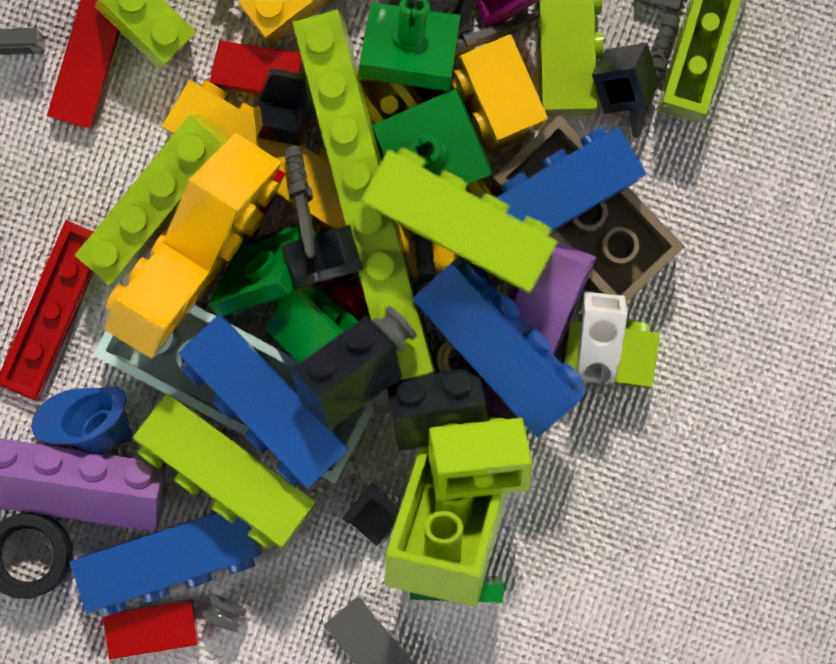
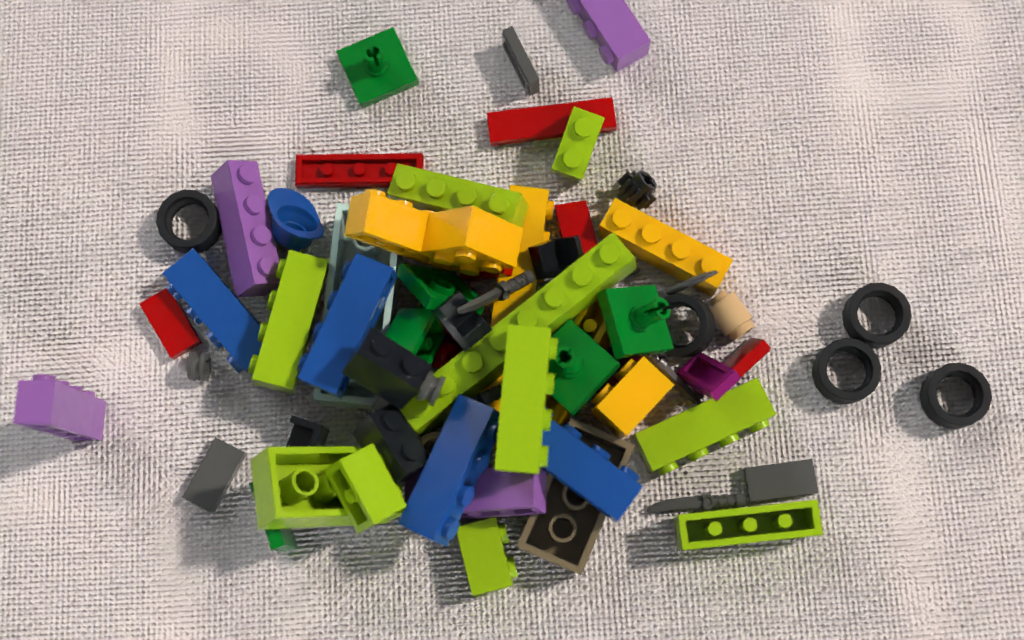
camera: 75 degrees right, 10 degrees down
(601, 337) = (490, 540): white leg -> none
(625, 78) = (683, 482): black brick -> none

